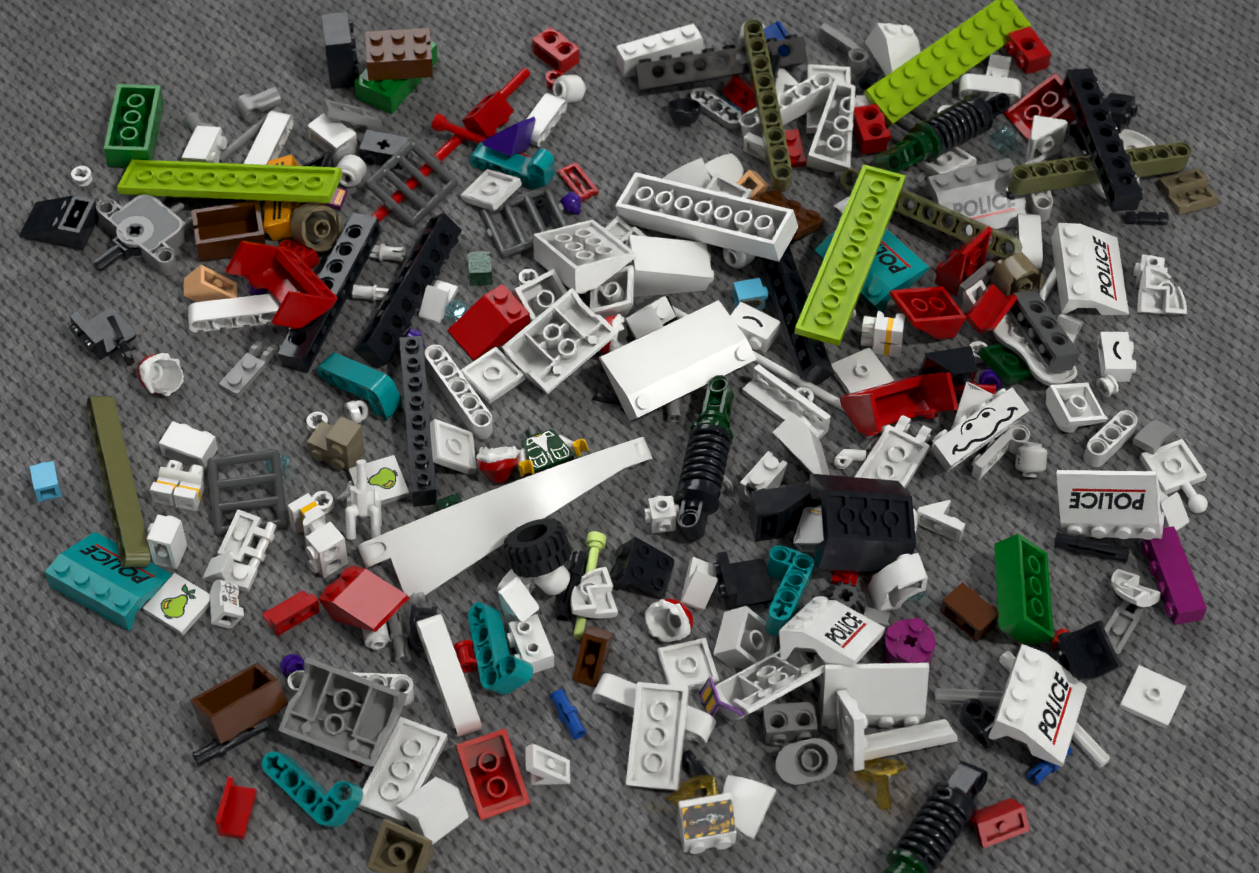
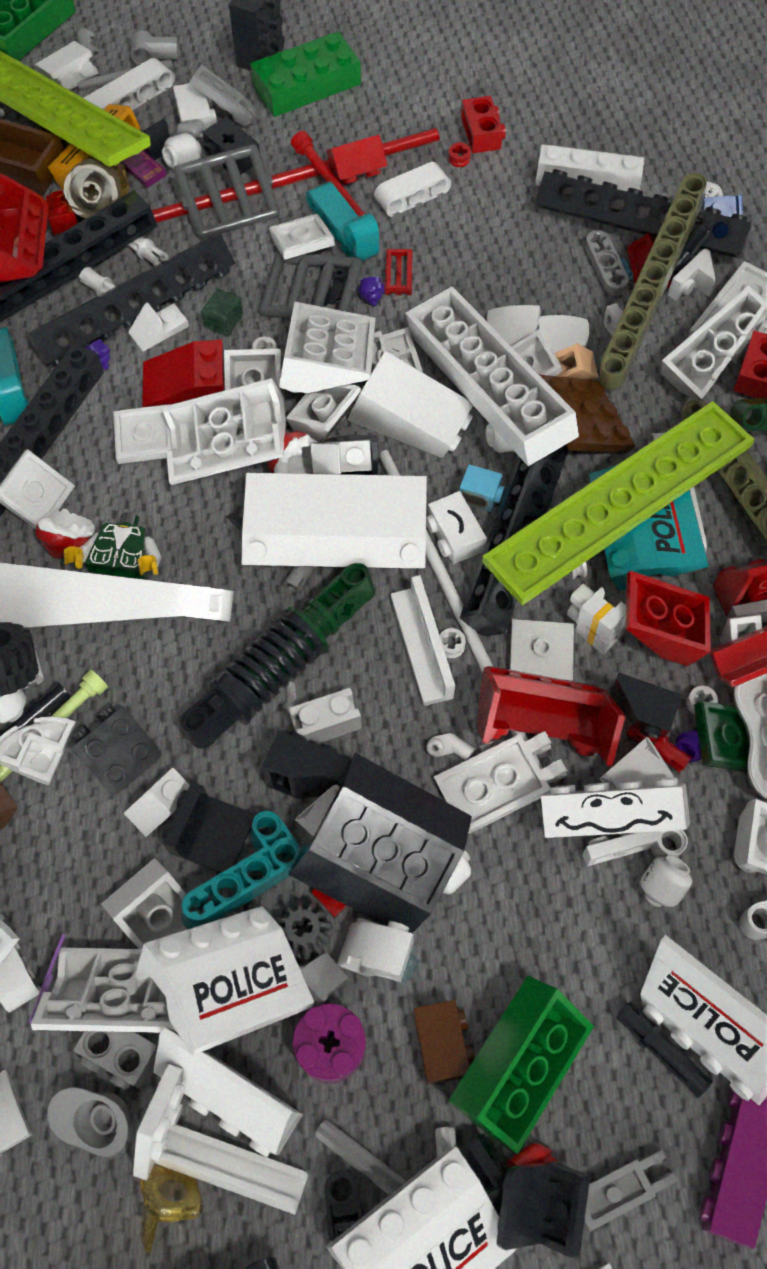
camera: 35 degrees right, 10 degrees up
(398, 54) = (305, 50): reddish brown piece -> none
(456, 309) = (164, 343): clear light blue plate -> none
(458, 391) = (93, 434): white beam -> none
(512, 139) = (358, 190): dark purple slope -> none
(569, 88) = (463, 169): white head -> none
(661, 514) = (174, 698): white brick -> none
(669, 620) = (88, 829): white hair -> none
(684, 110) = (567, 248): black piece -> none
(688, 664) = (72, 897): white tile -> none
(793, 102) = (691, 293): white beam -> none
(795, 148) = (657, 345): red plate -> none
(801, 440) = (395, 713): white slope -> none
(935, 519) = (491, 886): white slope -> none
(1127, 587) = (669, 1150): white brick -> none

